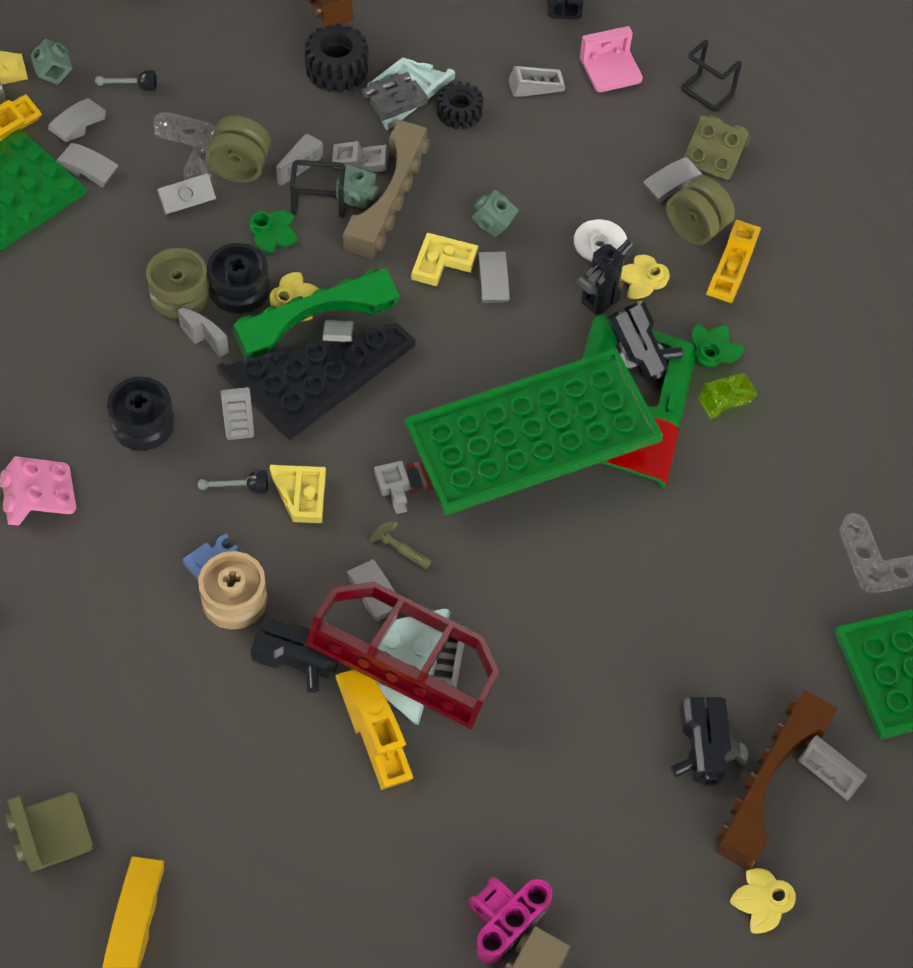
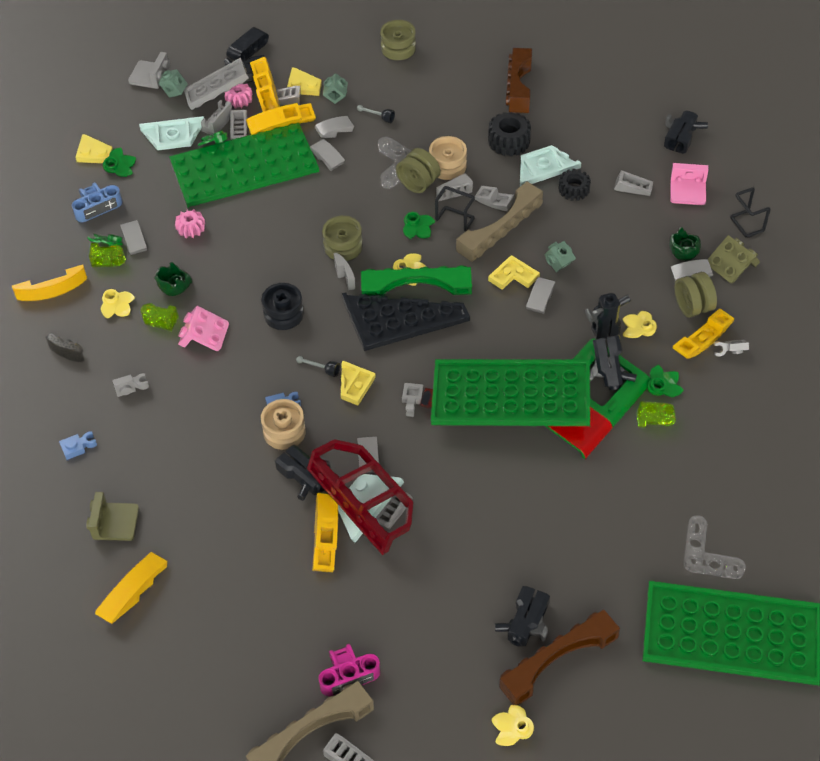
camera: 30 degrees right, 5 degrees down
(186, 194) = (376, 188): light grey plate -> none
(237, 415) = (338, 326): light grey slope -> none
(238, 278) = (380, 246): black wheel -> none
(275, 111) = (451, 156): none -> tan wheel
(338, 330) = (423, 295): light grey slope -> none
(358, 187) = (480, 214): sand green brick -> none
(381, 533) = (397, 435): olive piece -> none
(395, 95) = (533, 166): flat silver plate -> none
(596, 234) = (622, 288): white dish -> none
(648, 146) = (684, 245): none -> dark green hair
(779, 265) = (734, 346): none -> light grey plate
(832, 767) = (599, 664): light grey plate -> none

